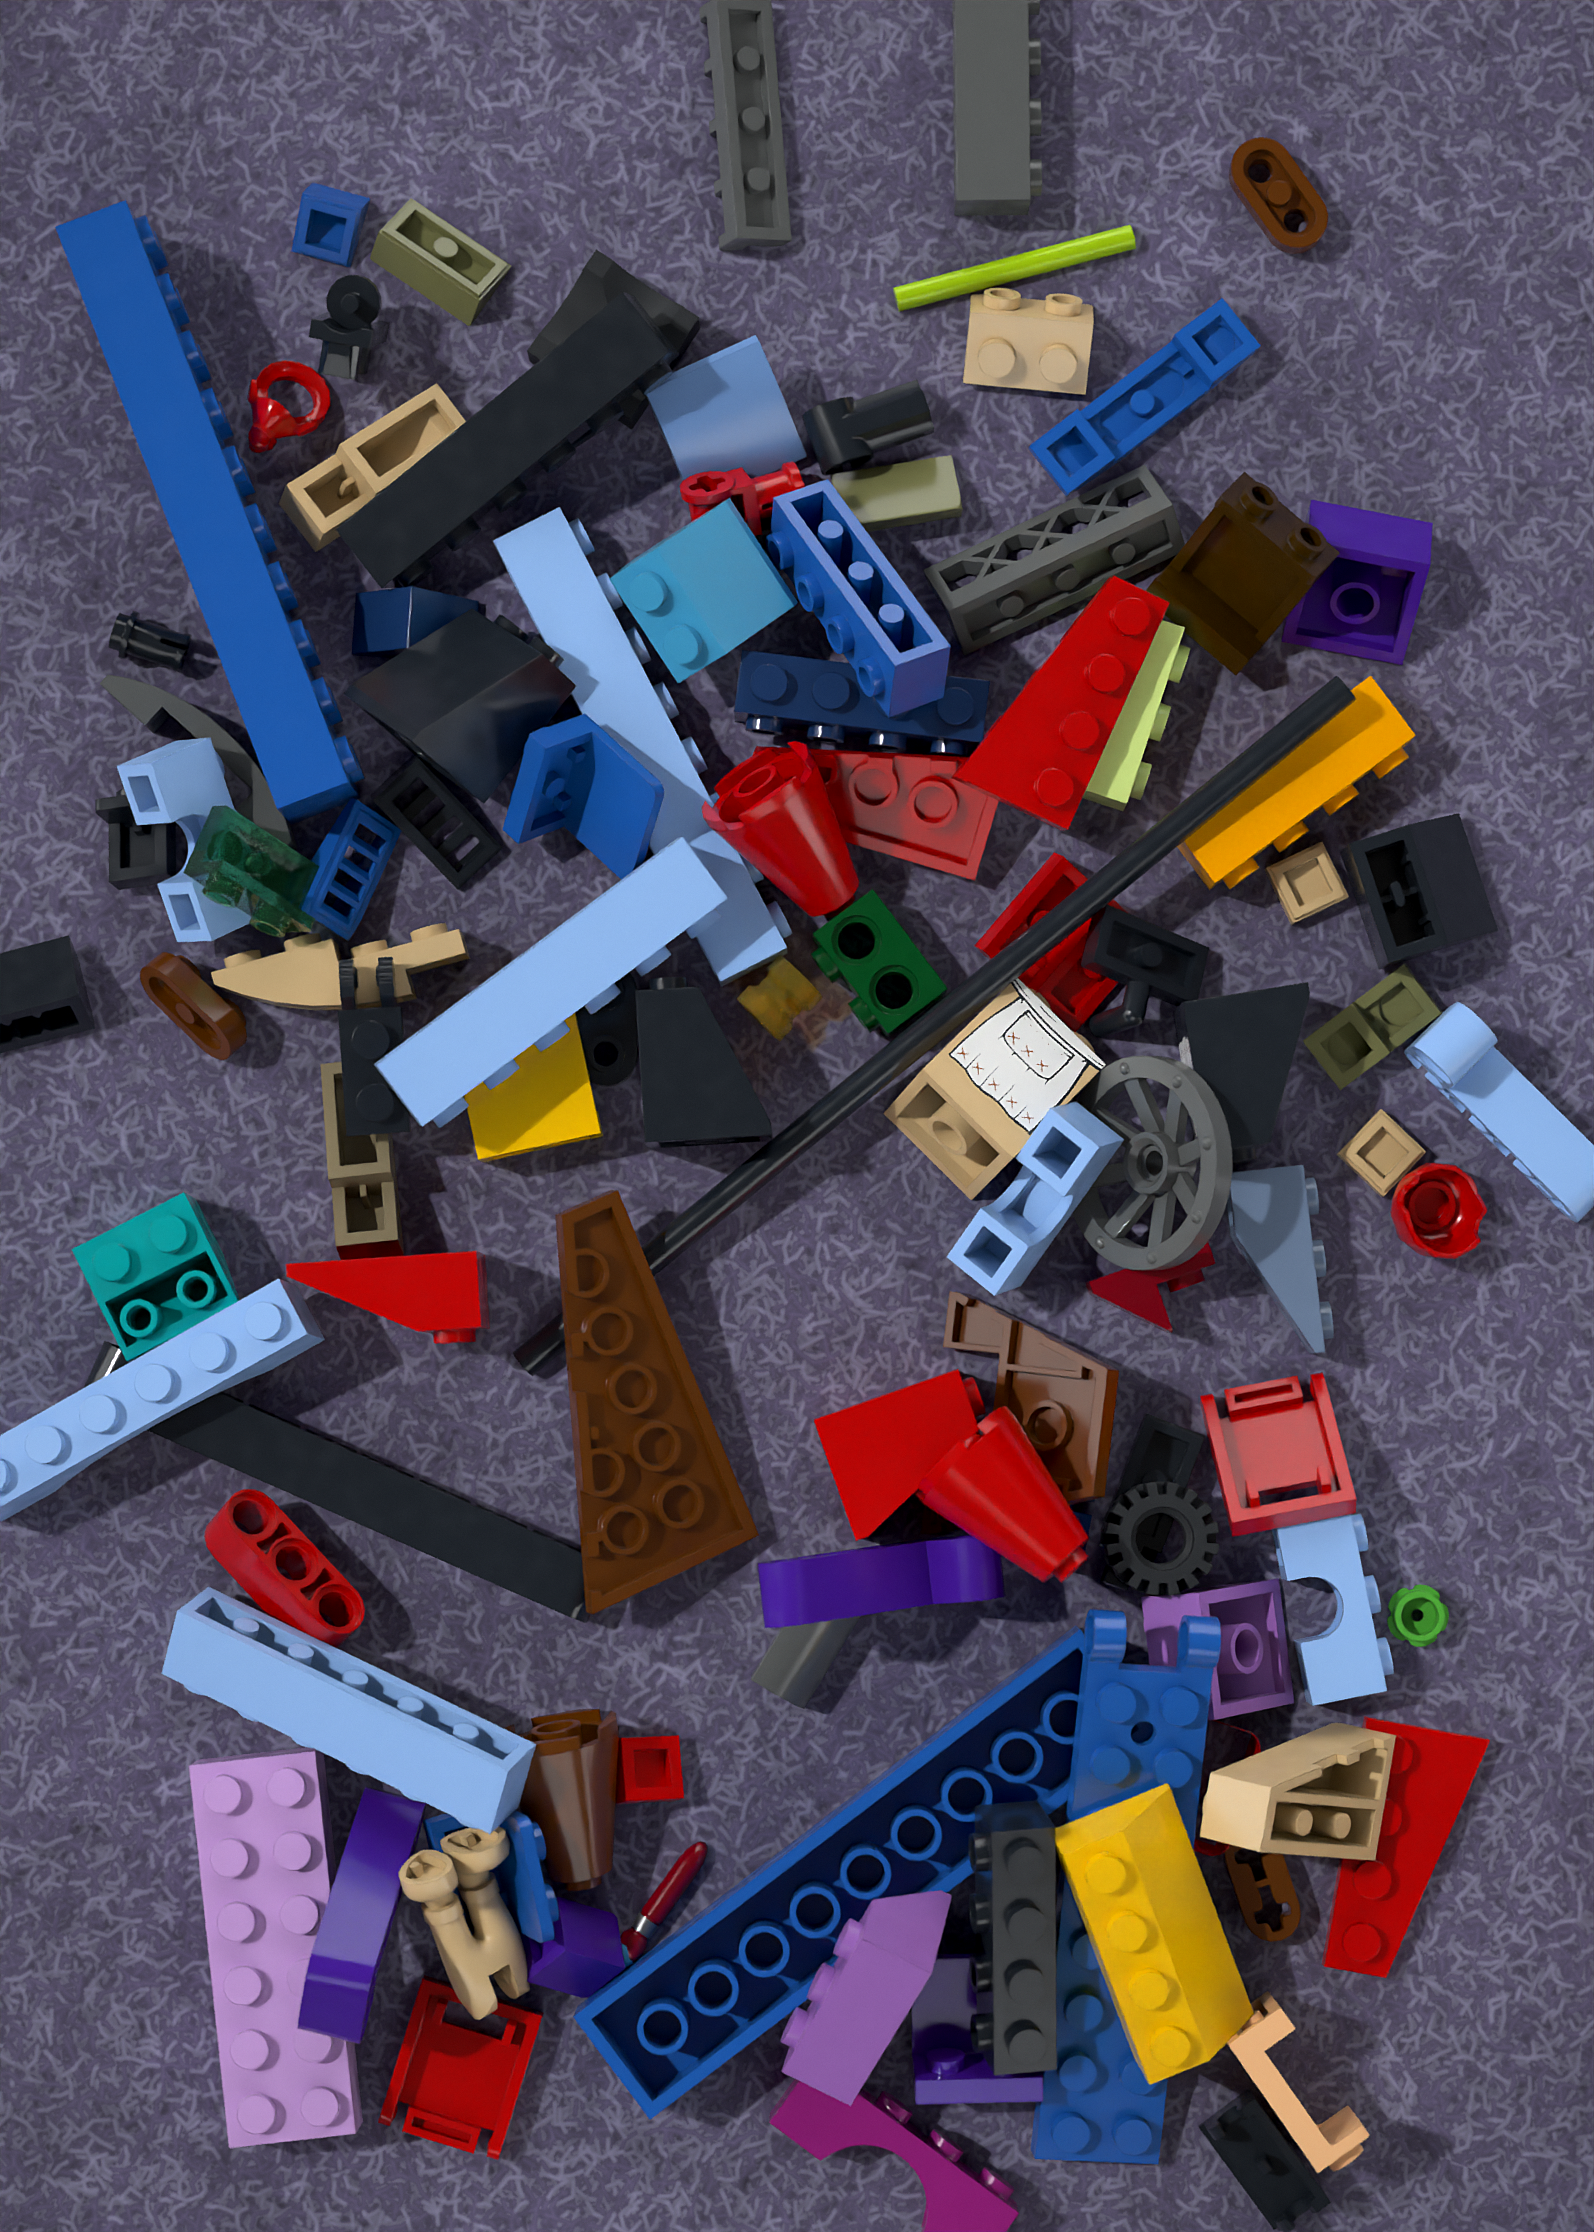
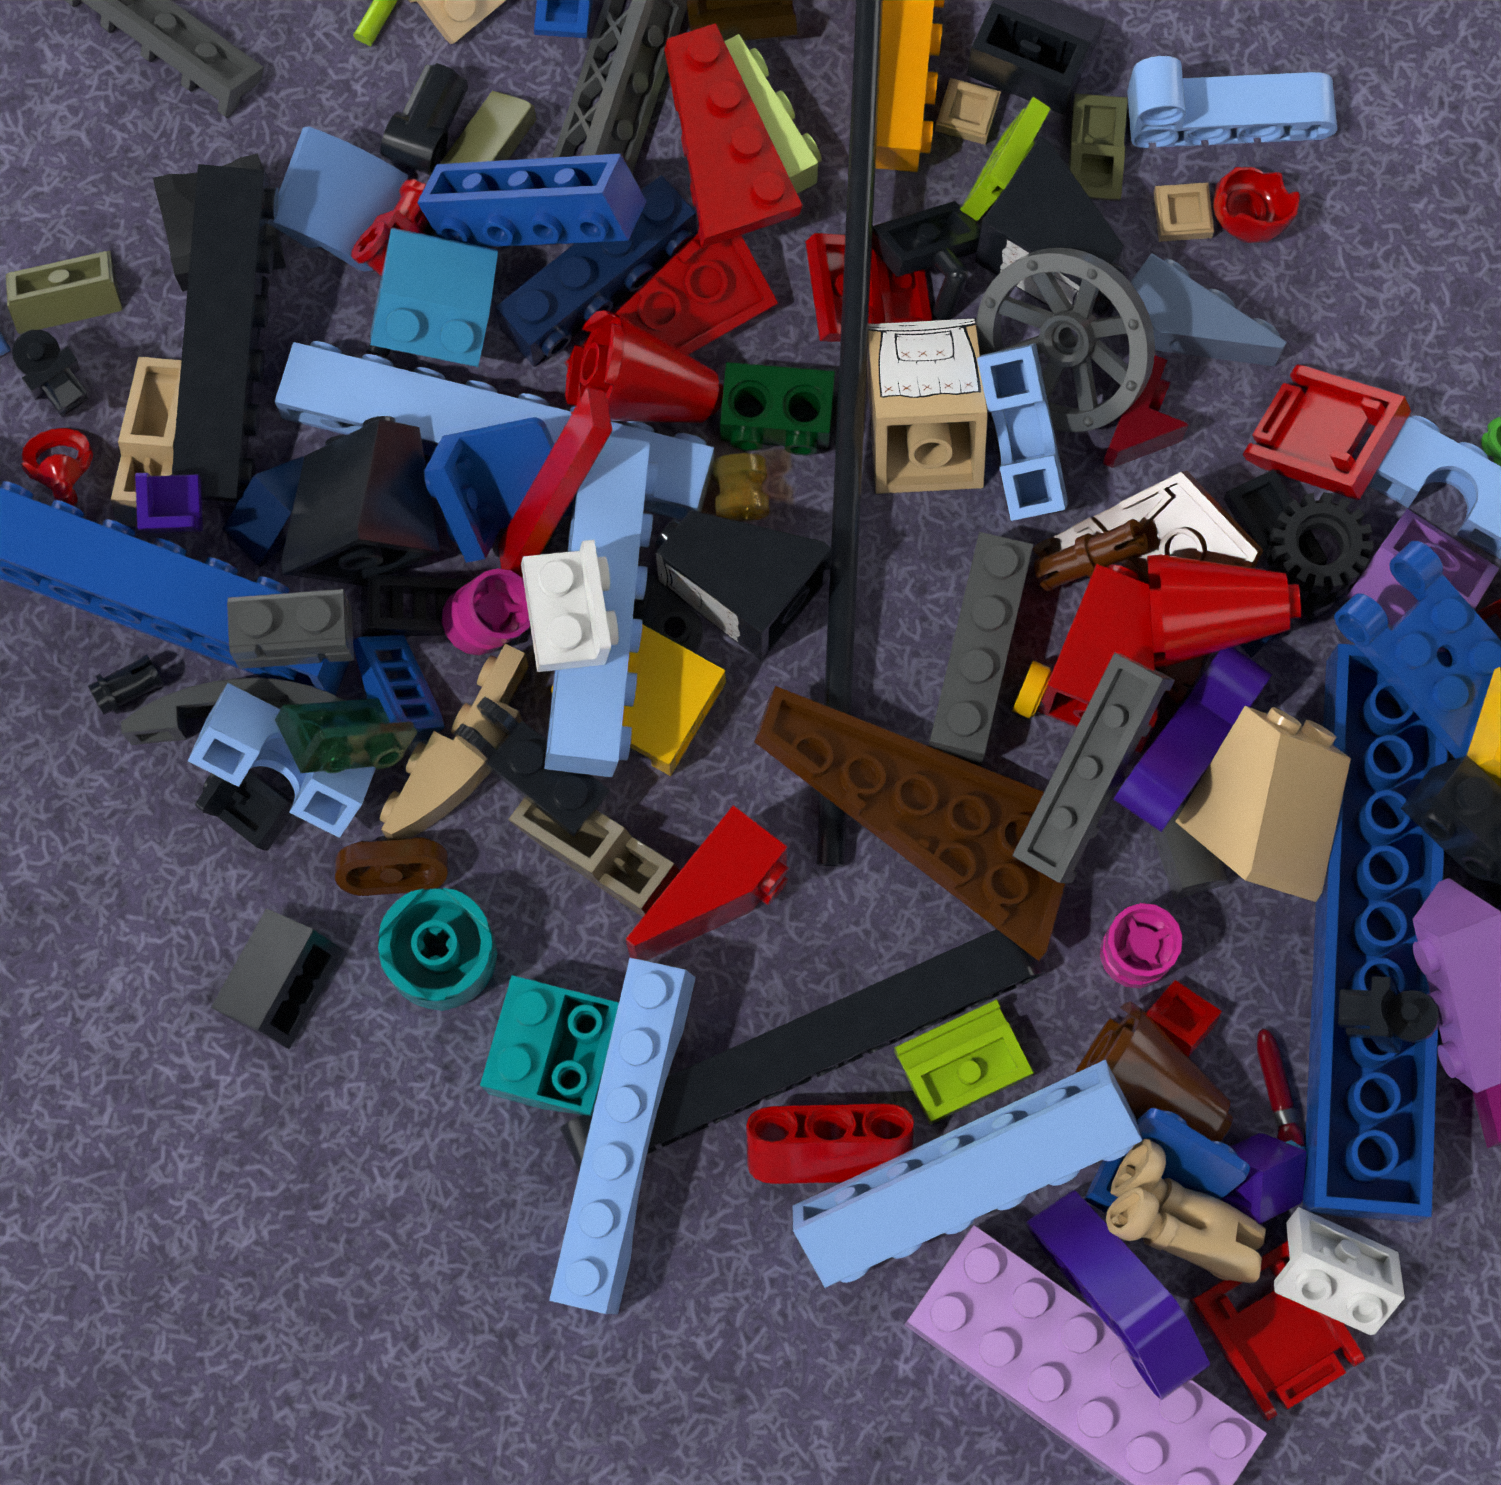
camera: 50 degrees left, 10 degrees down
(133, 1081) = (437, 916): none -> teal brick
(288, 755) = (290, 628): none -> dark grey brick
(318, 542) = (168, 503): none -> dark purple panel
(452, 1621) = (963, 1062): none -> lime plate
(474, 889) = (486, 612): none -> dark pink wheel
(510, 968) = (569, 608): none -> white bracket
(548, 2080) = (1340, 1273): none -> white bracket
(619, 853) = (557, 481): none -> red tile
(676, 1685) = (1141, 945): none -> dark pink wheel
(774, 1946) = (1387, 1014): none -> black hips
(775, 1520) = (1091, 767): none -> dark grey hinge
(815, 1327) = (980, 647): none -> dark grey brick
(821, 1401) = (1032, 690): none -> yellow tile
(880, 1695) = (1271, 801): none -> tan slope
(976, 1351) = (1088, 551): none -> reddish brown pin
(1278, 961) = (1005, 159): none -> lime plate

